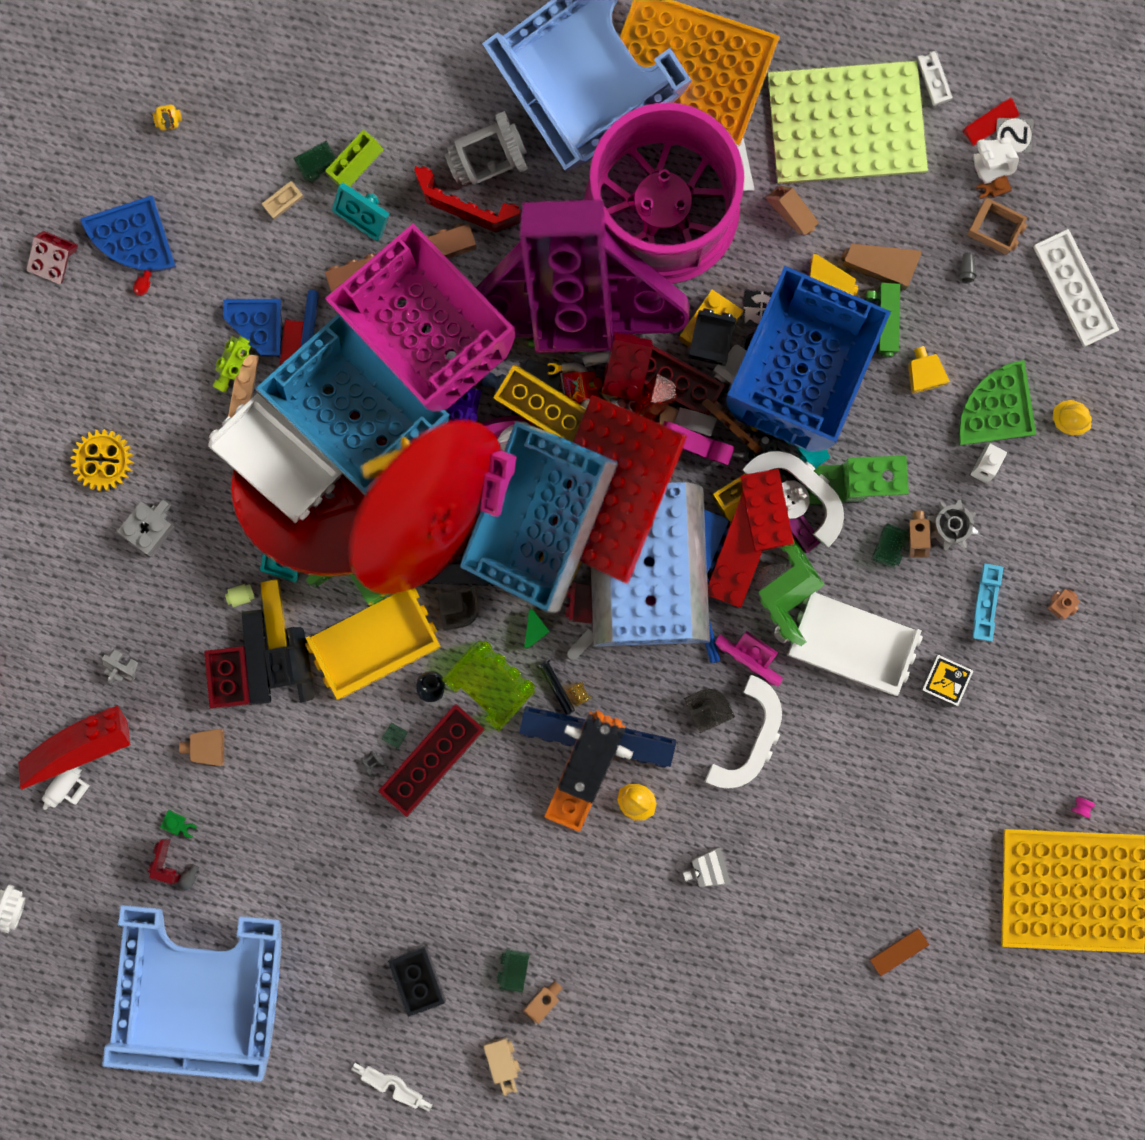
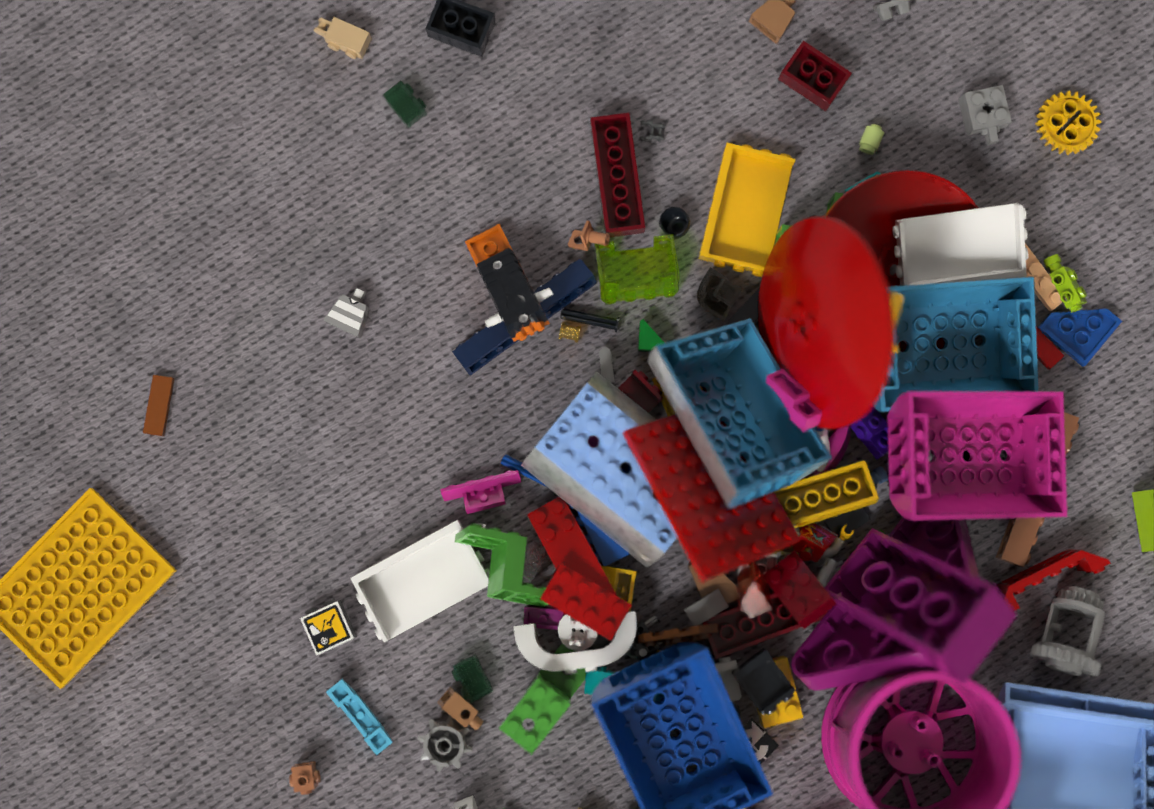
camera: 130 degrees right, 0 degrees up
(255, 658) = (812, 111): black beam -> none
(274, 614) = (829, 151): yellow slope -> none
(291, 665) = (782, 132): black plate -> none
(310, 316) = (1052, 380): blue axle -> none
(361, 211) = (1106, 489): teal plate -> none
(395, 735) = (660, 166): clear green tile -> none
(498, 740) = (588, 237): none -> nougat bracket
(536, 1009) = (361, 93): medium nougat torso -> none
(636, 802) = (449, 305): yellow piece -> none
(704, 446) = (685, 595): dark pink beam -> none
(708, 709) = (470, 420): clear smoke brick -> none
(766, 737) = (396, 404): white arch -> none
(1083, 807) = (136, 647): dark pink wheel -> none

